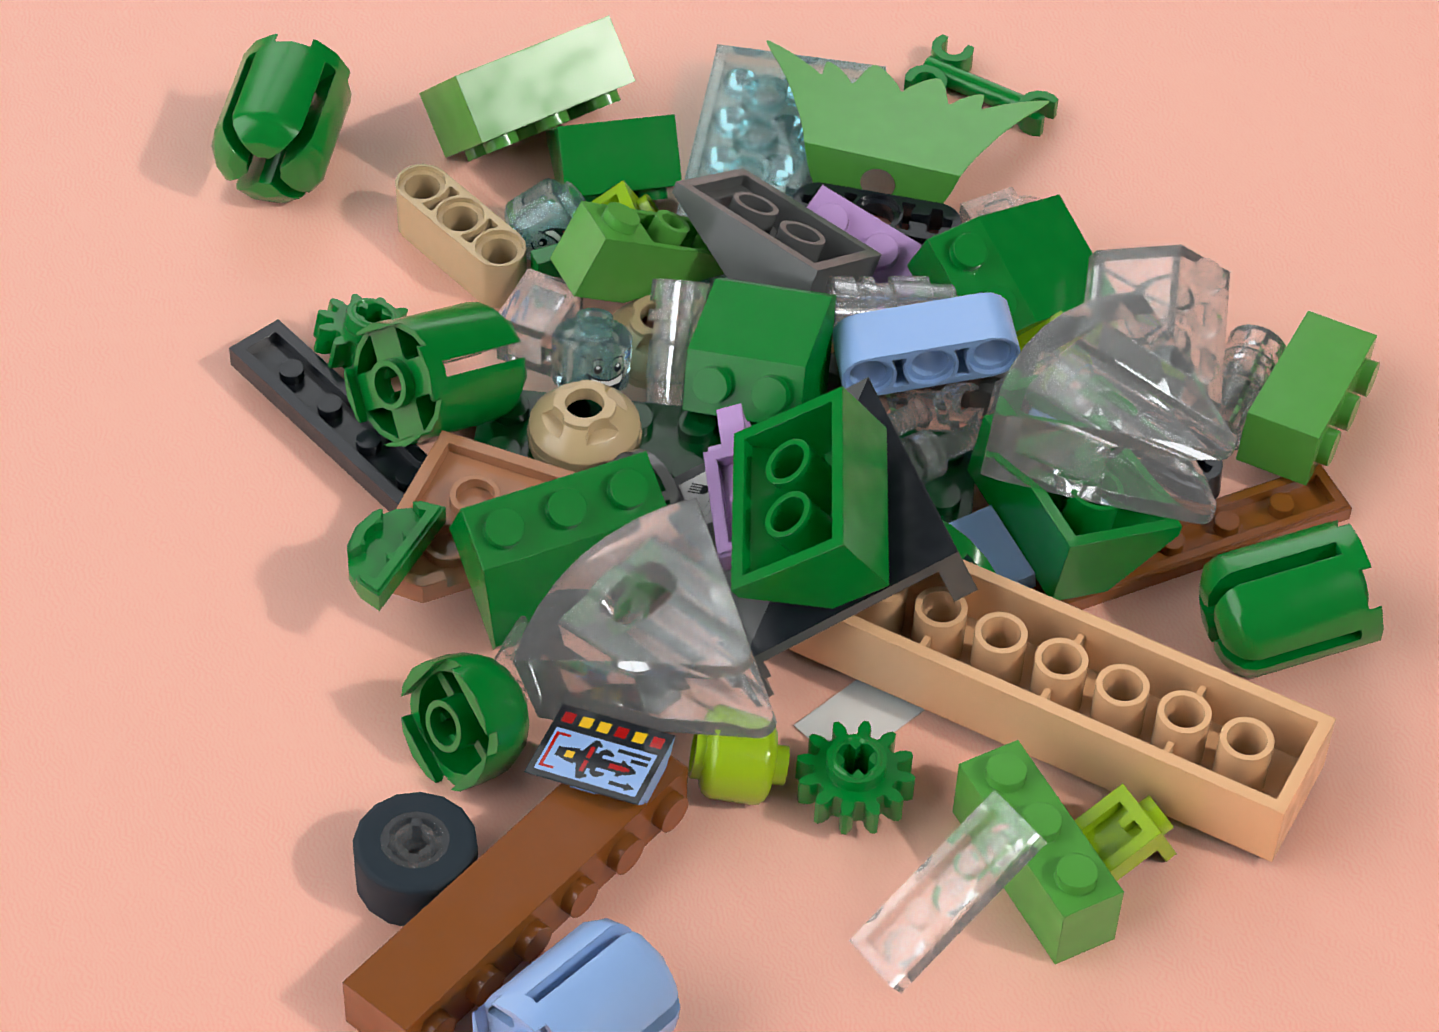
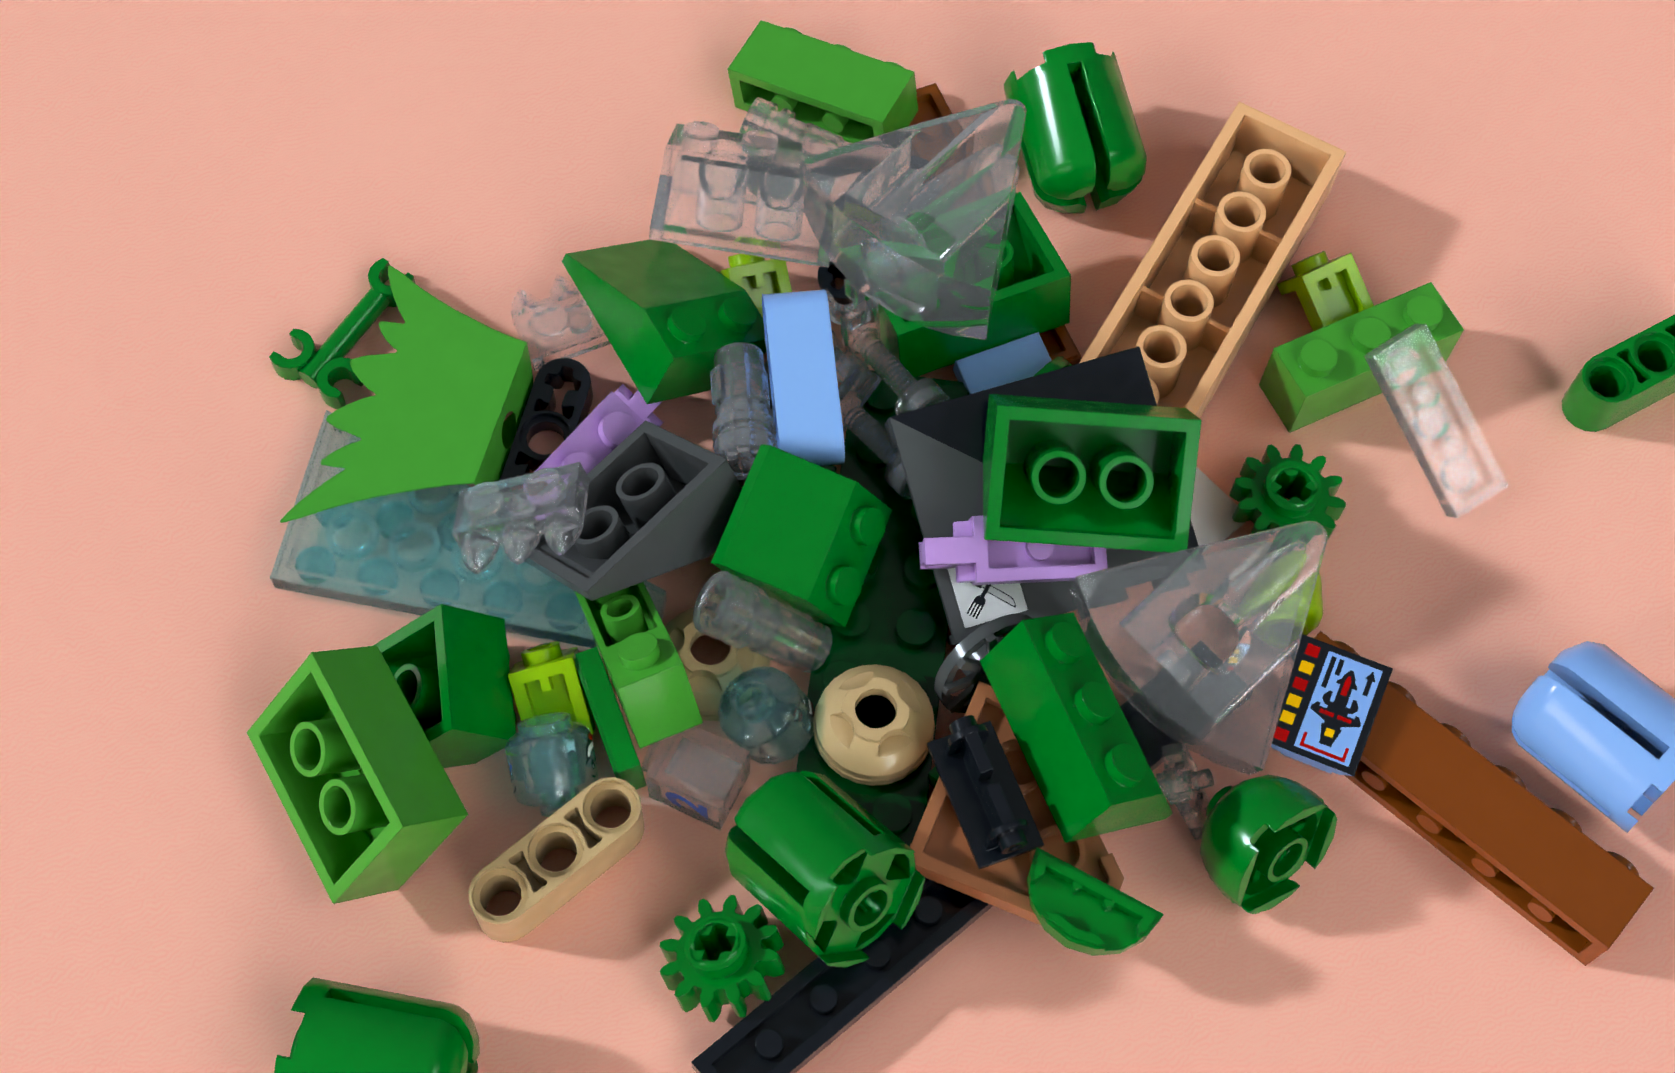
camera: 90 degrees left, 15 degrees up
(410, 853) = (1407, 911): black wheel -> none
(487, 472) = (984, 792): none -> black hinge
(770, 168) = (519, 513): none -> clear plate

